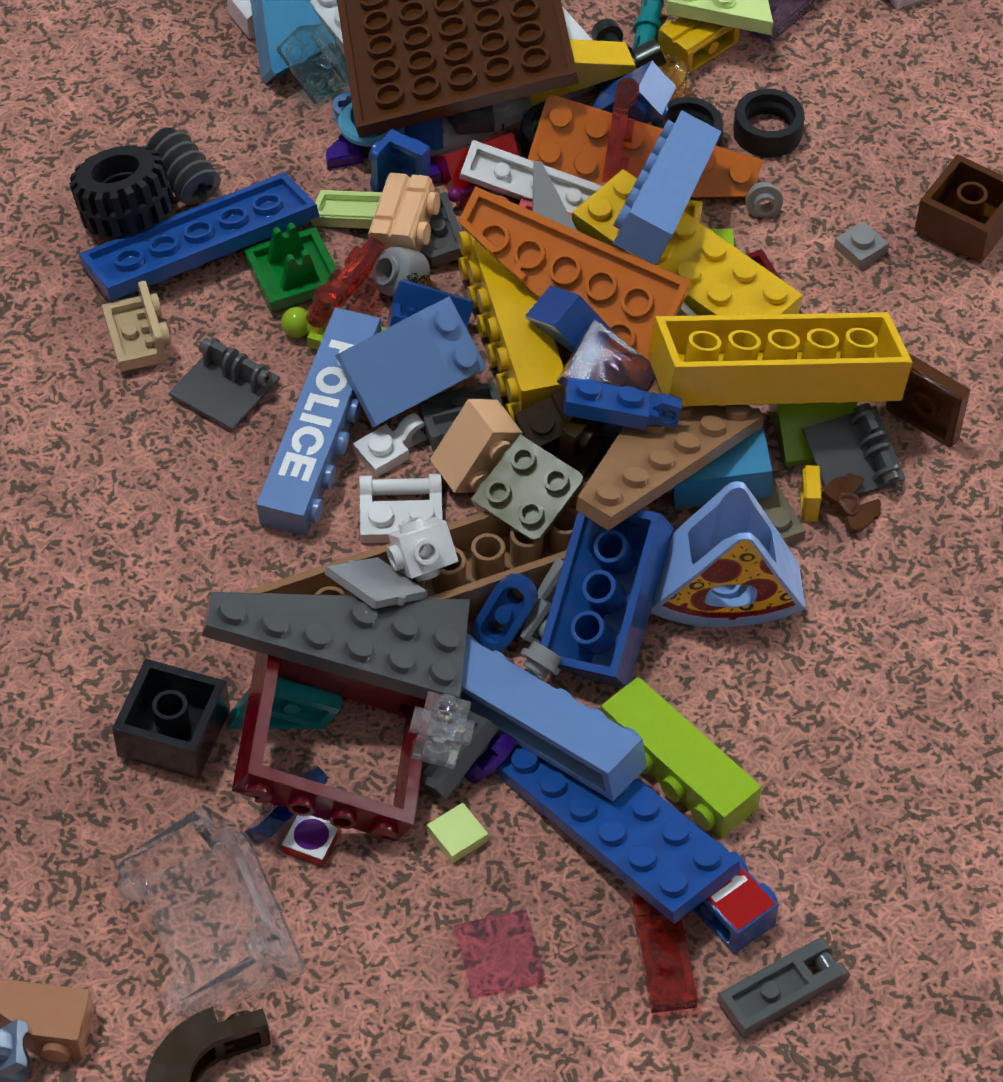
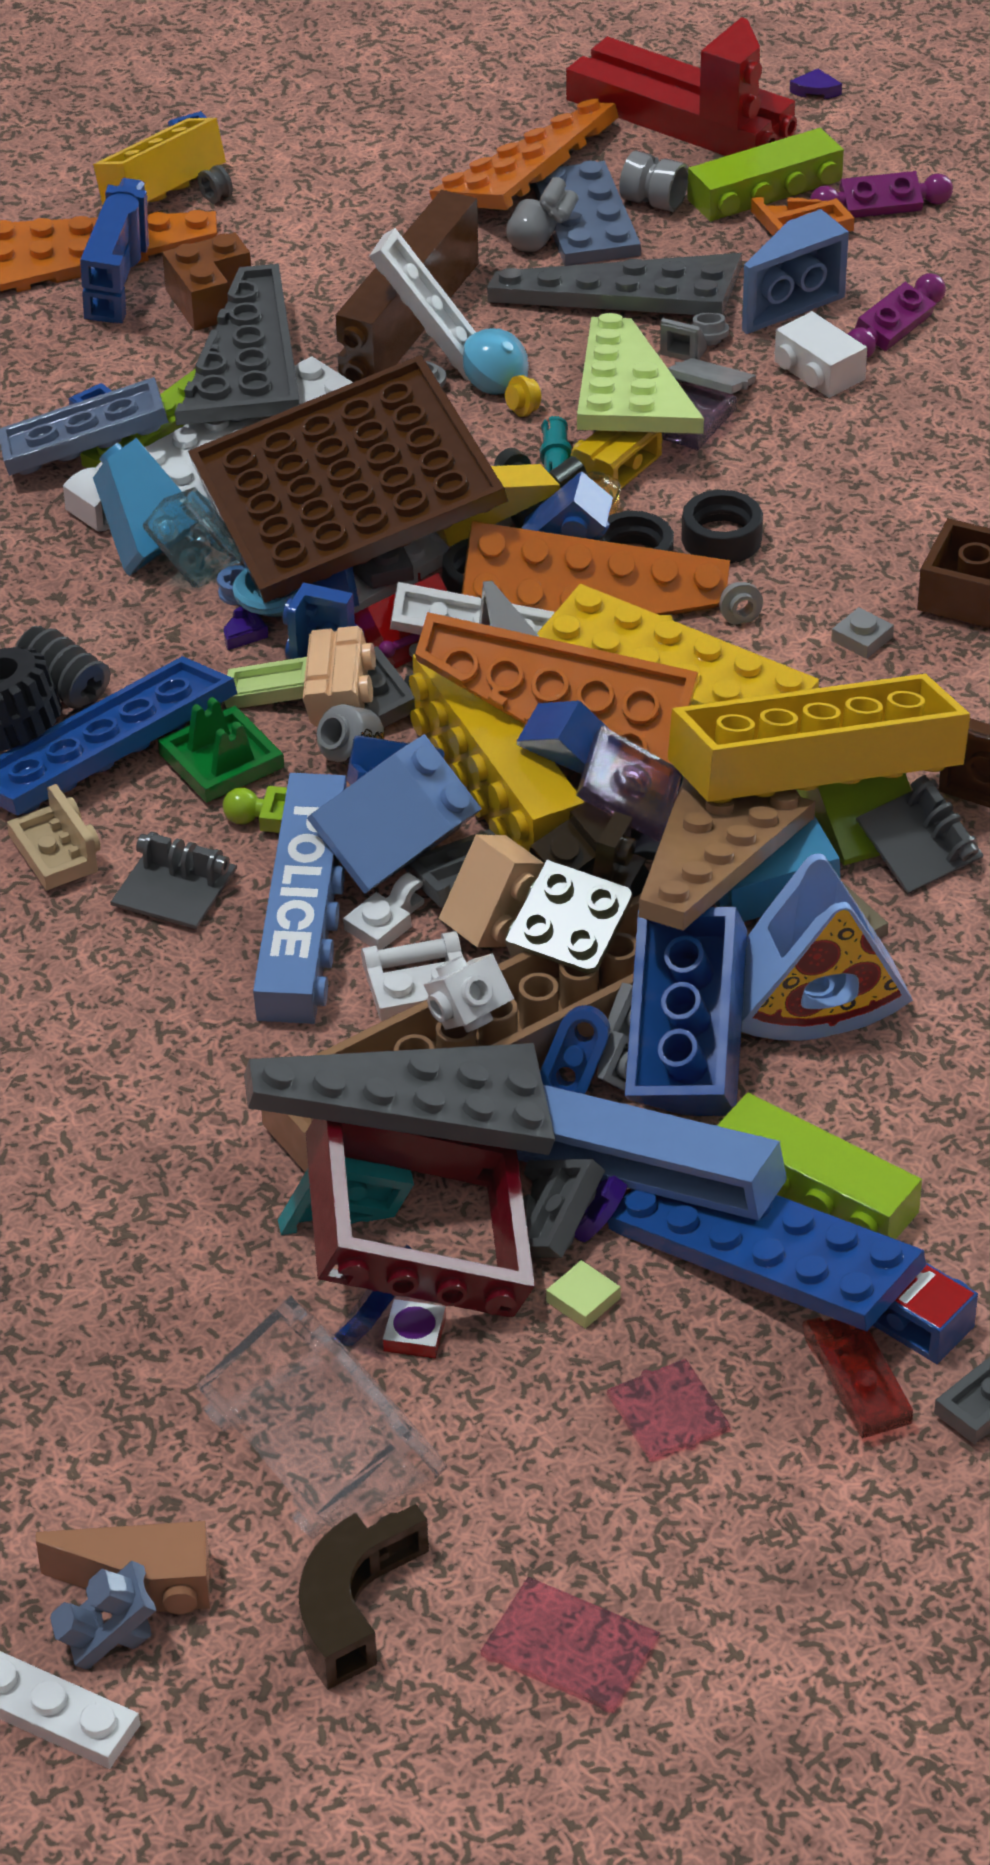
camera: 10 degrees left, 10 degrees down
(171, 718) = (217, 1227): black brick -> none
(343, 283) = (288, 752): clear red plate -> none
(375, 582) = (424, 1036): light grey piece -> none
(441, 729) = (542, 1176): clear brick -> none
(541, 660) = (634, 1088): light grey plate -> none
(620, 405) = (657, 805): blue hinge -> none
(621, 128) = (565, 543): clear red plate -> none
(665, 187) = (639, 587): medium blue brick -> none
(810, 493) = (883, 883): yellow tile -> none
(847, 504) = (917, 878): reddish brown piece -> none

